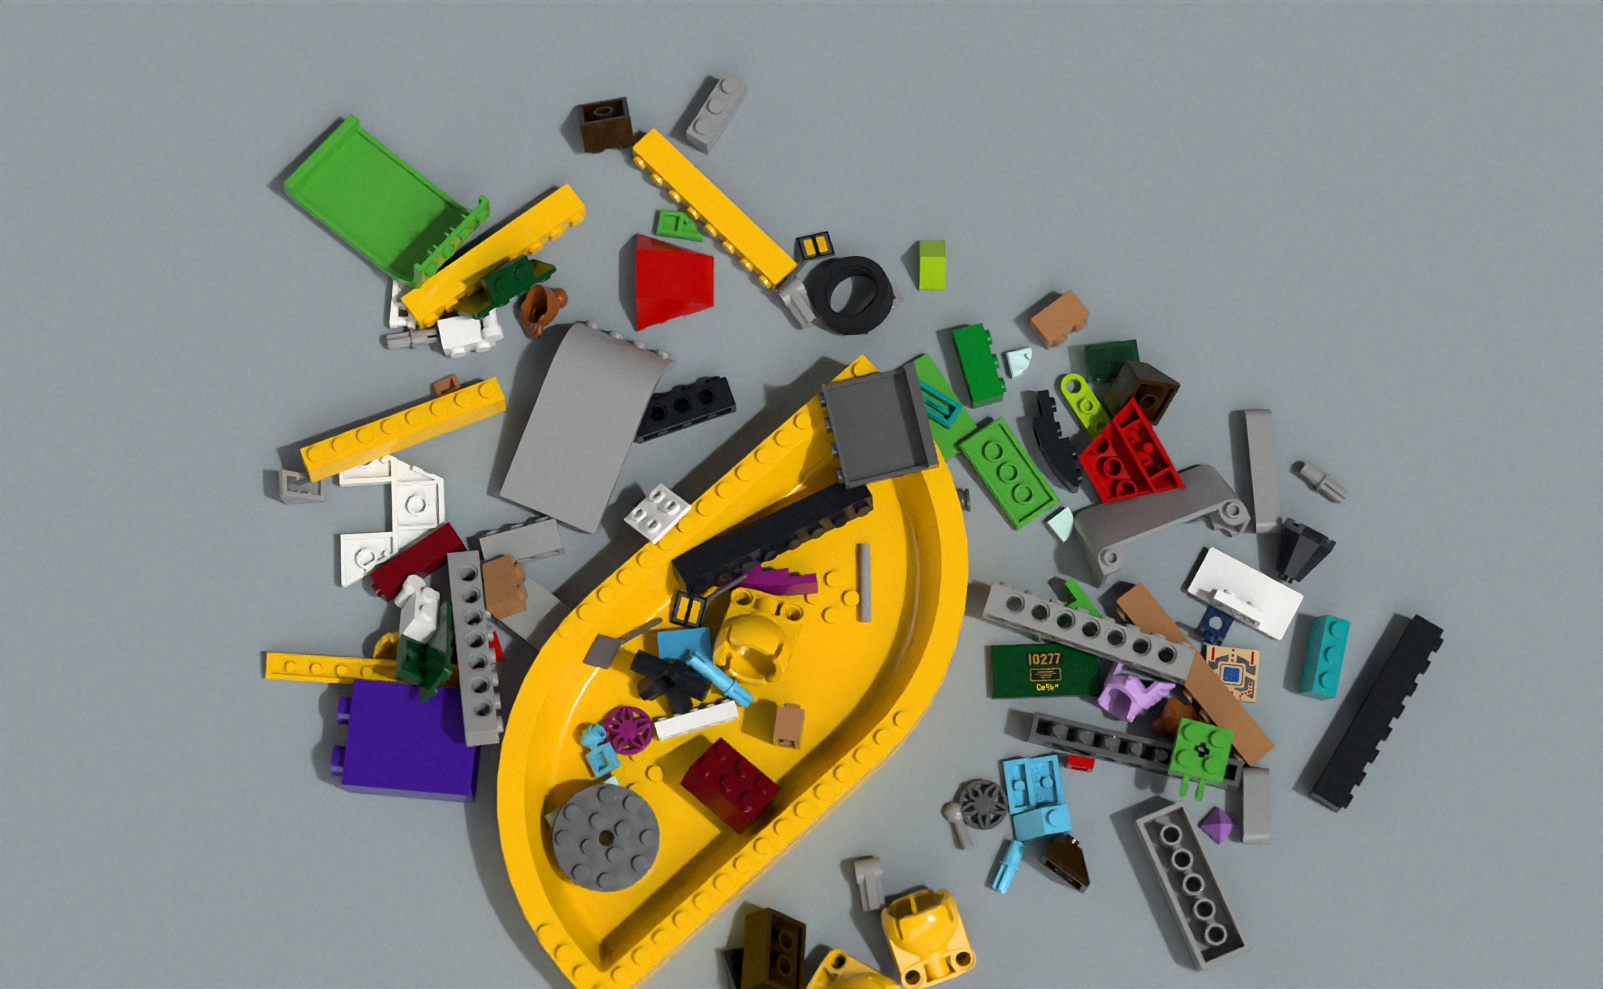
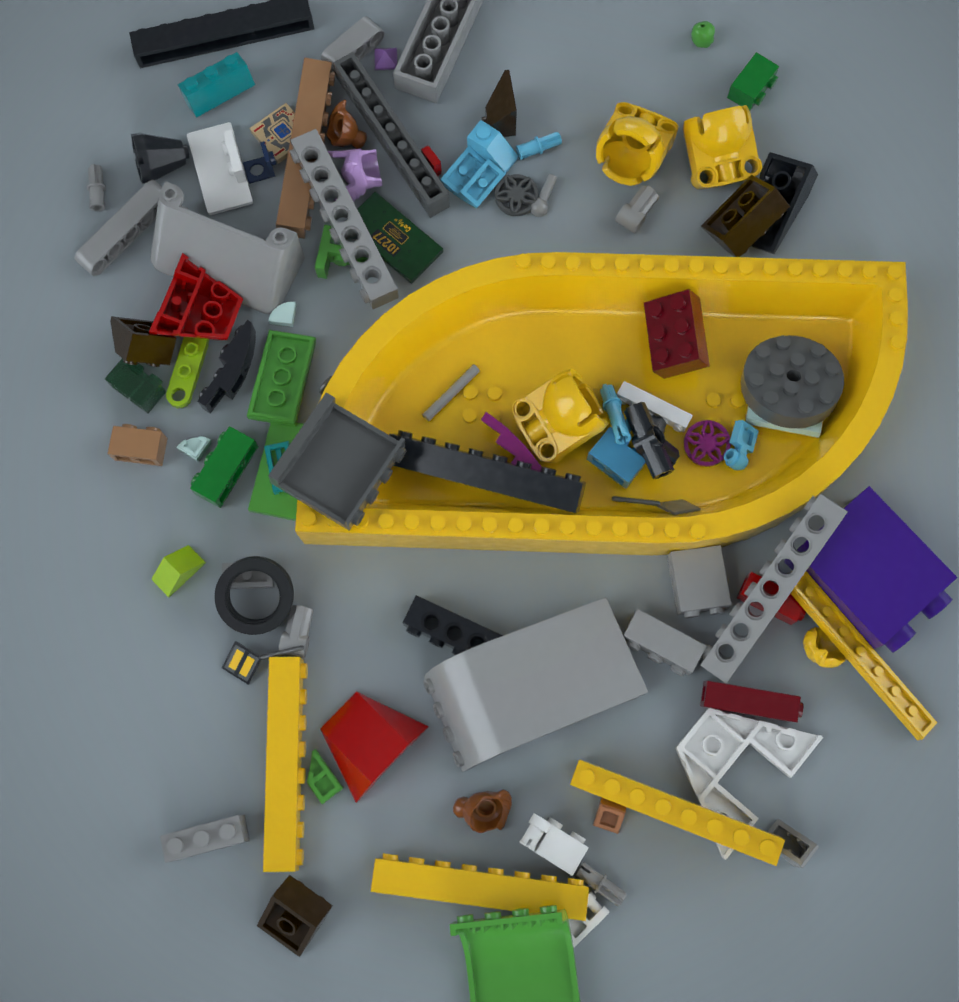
camera: 135 degrees left, 0 degrees up
(418, 609) = (786, 658): white hinge -> none
(429, 662) = (815, 610): dark green bracket -> none
(503, 284) = (500, 849): dark green bracket -> none
(504, 587) = (707, 615): medium nougat brick -> none
(657, 513) = (552, 558): white plate -> none
(691, 610) = (591, 475): piece -> none
(789, 726) = (599, 338): medium nougat brick -> none
(1187, 764) = (357, 81): bright green hinge -> none

